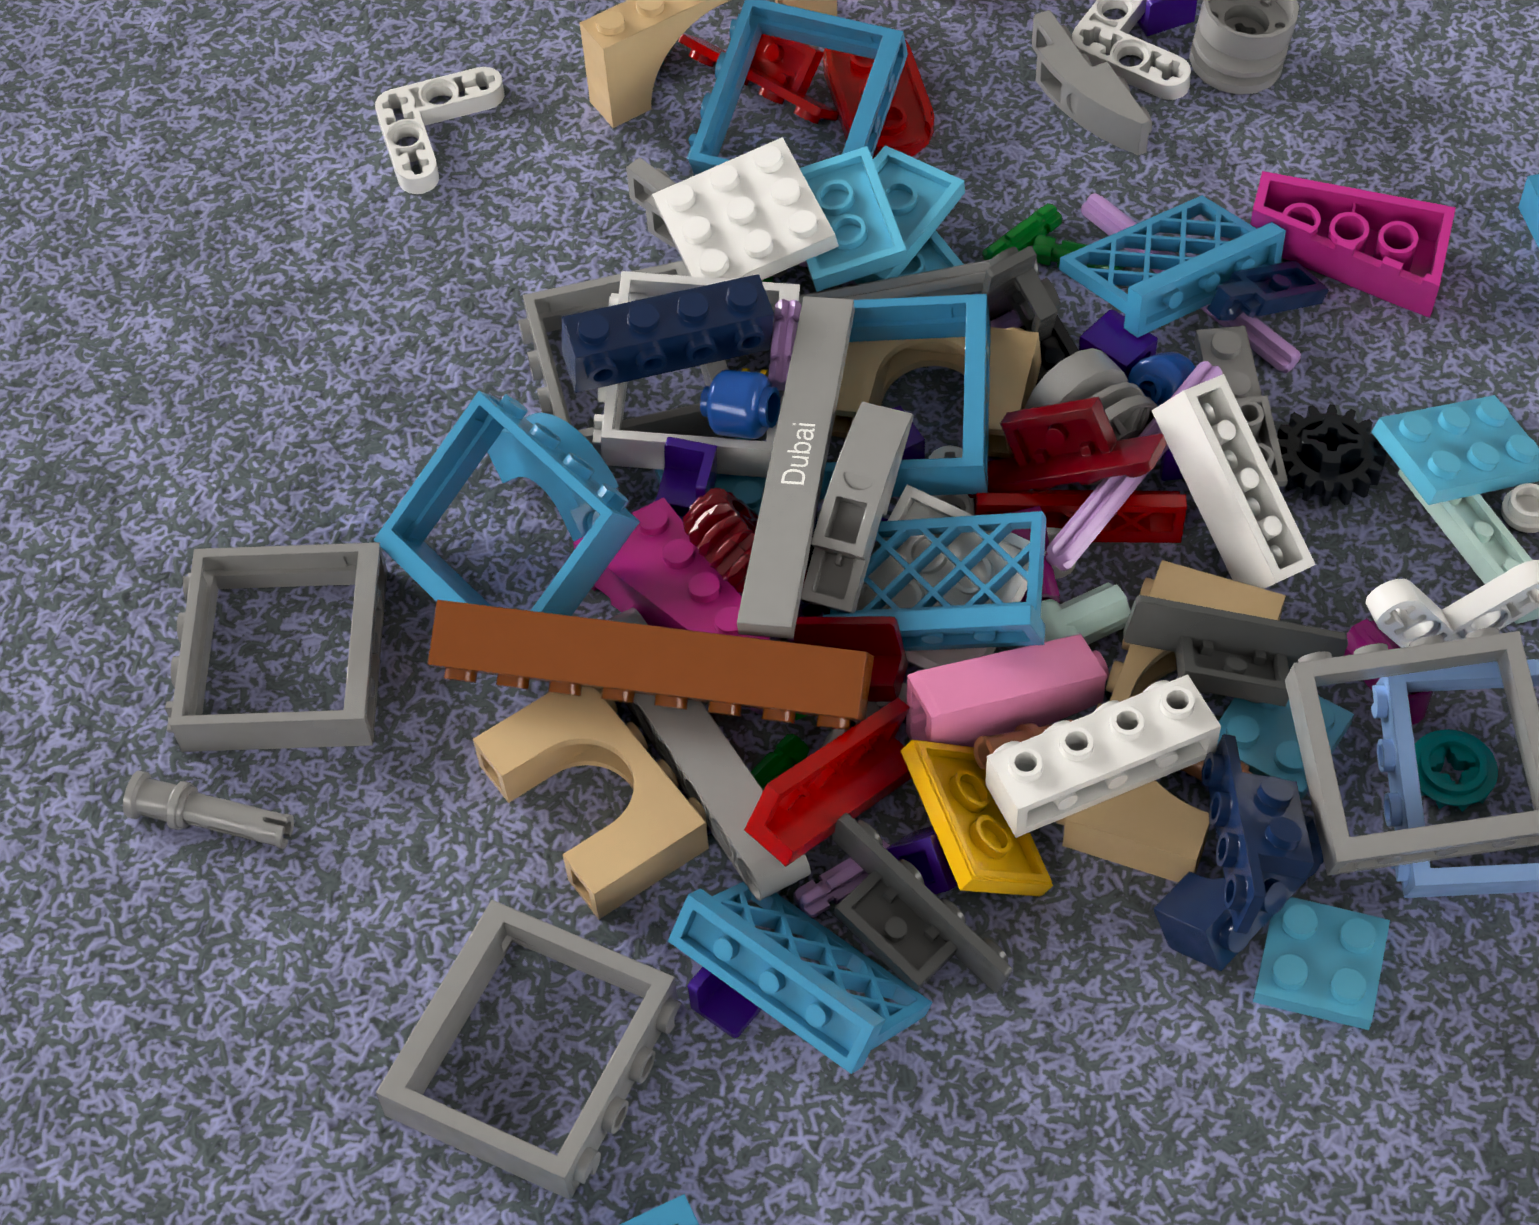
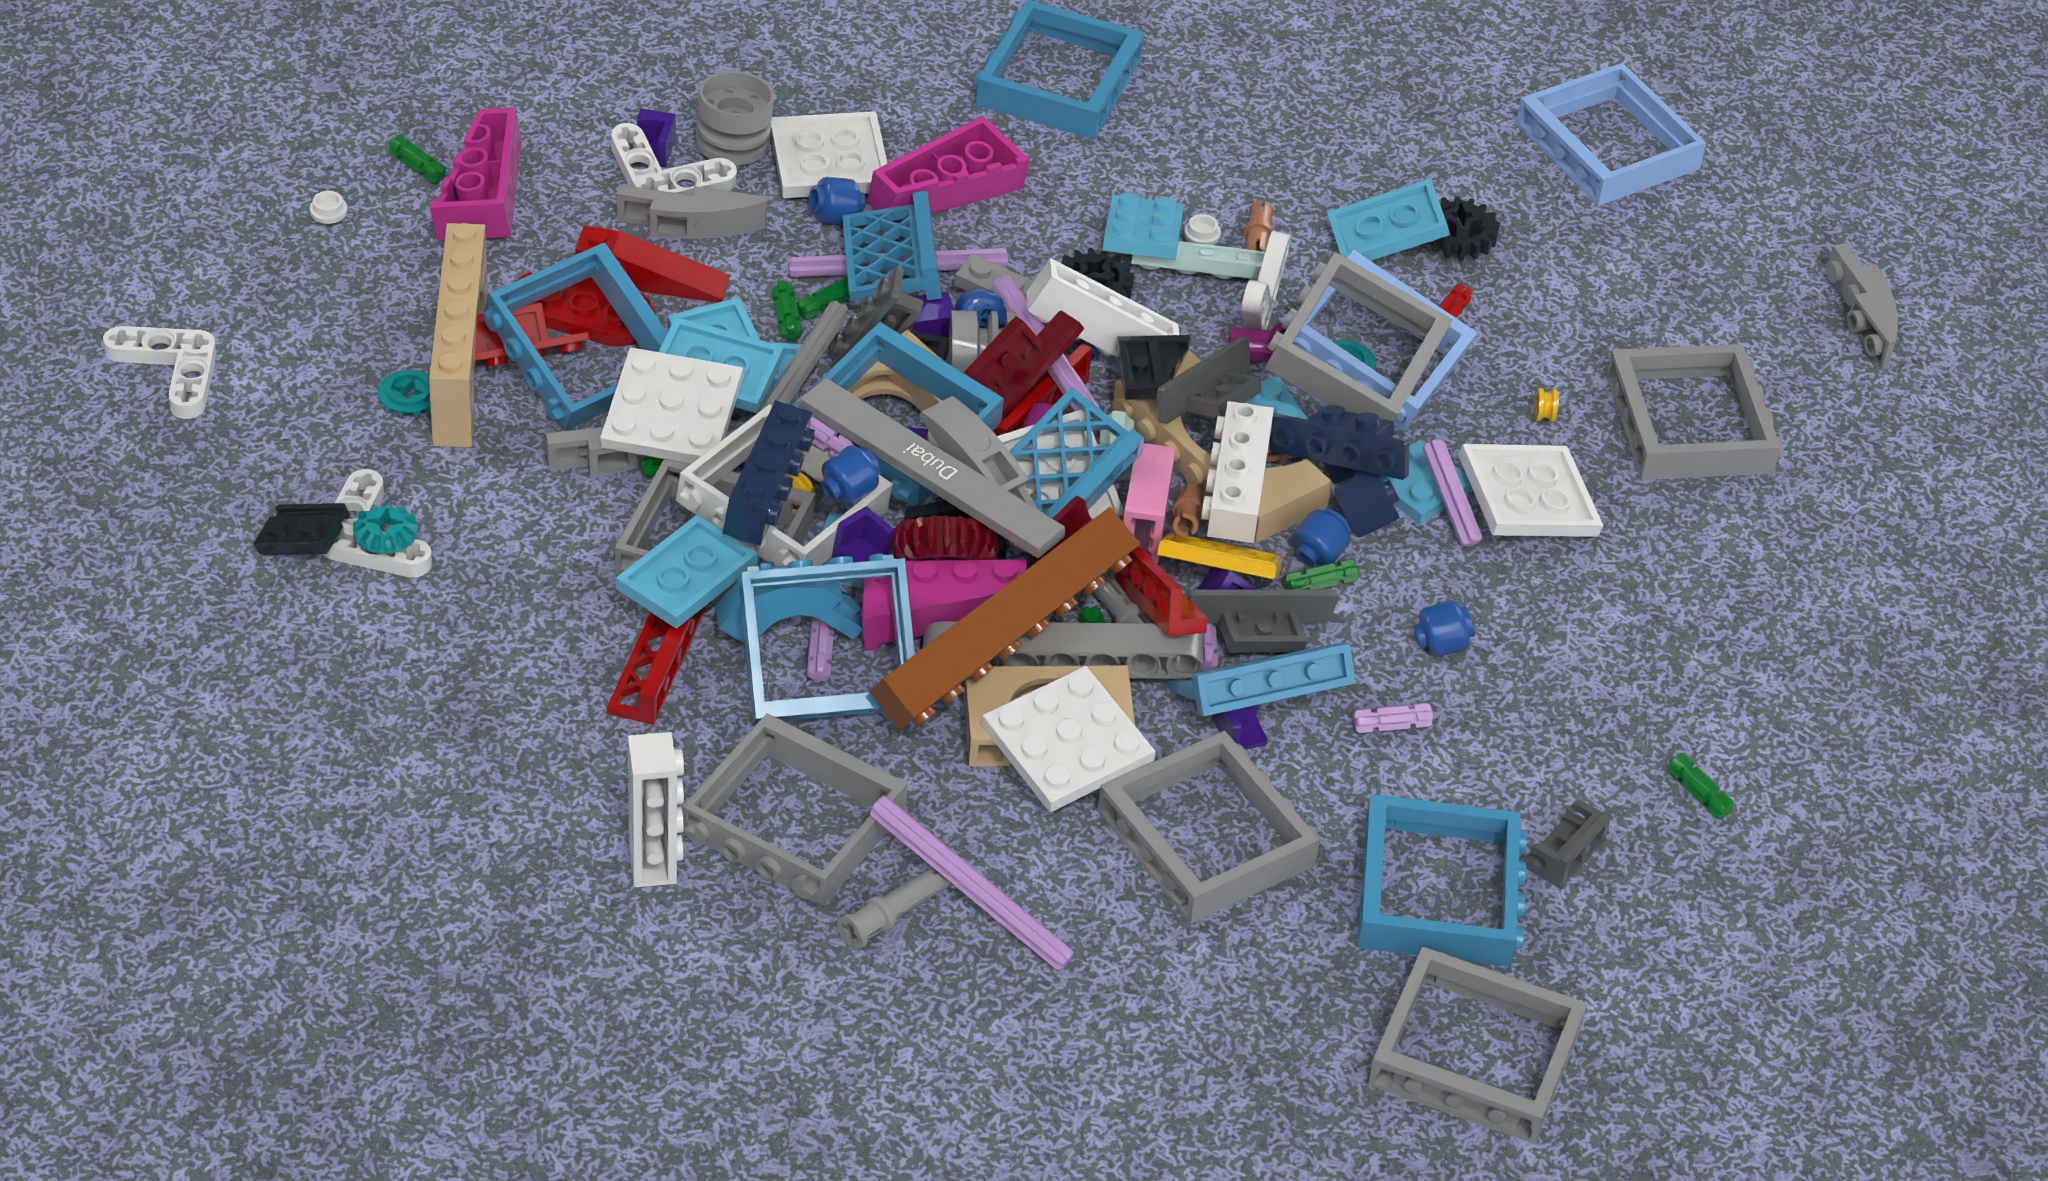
camera: 65 degrees left, 10 degrees down
(117, 515) = (654, 809): none -> white brick
(263, 864) = (971, 883): none -> lavender axle
(378, 76) = (302, 529): none -> black plate
(412, 138) = (396, 538): none -> teal gear
(412, 422) = (662, 672): none -> red fence
(506, 358) = (686, 571): none -> medium azure plate
(533, 544) = (820, 651): none -> lavender axle
(533, 828) = (1067, 738): none -> white plate
(875, 1152) = (1392, 718): none -> lavender axle
(977, 94) = (657, 269): none -> red wedge
(1054, 943) = (1322, 576): none -> green axle
(1067, 1126) = (1444, 628): none -> blue head
(1108, 905) = (1321, 537): none -> blue head
(1207, 570) = (1149, 362): none -> black wing
(1221, 177) = (835, 198): none -> blue head
(1267, 291) = (952, 231): dark blue hinge -> none
(1292, 129) = (826, 146): none -> white plate
(1308, 1005) = (1452, 493): none -> lavender axle
(1405, 1094) = (1530, 490): none -> white plate

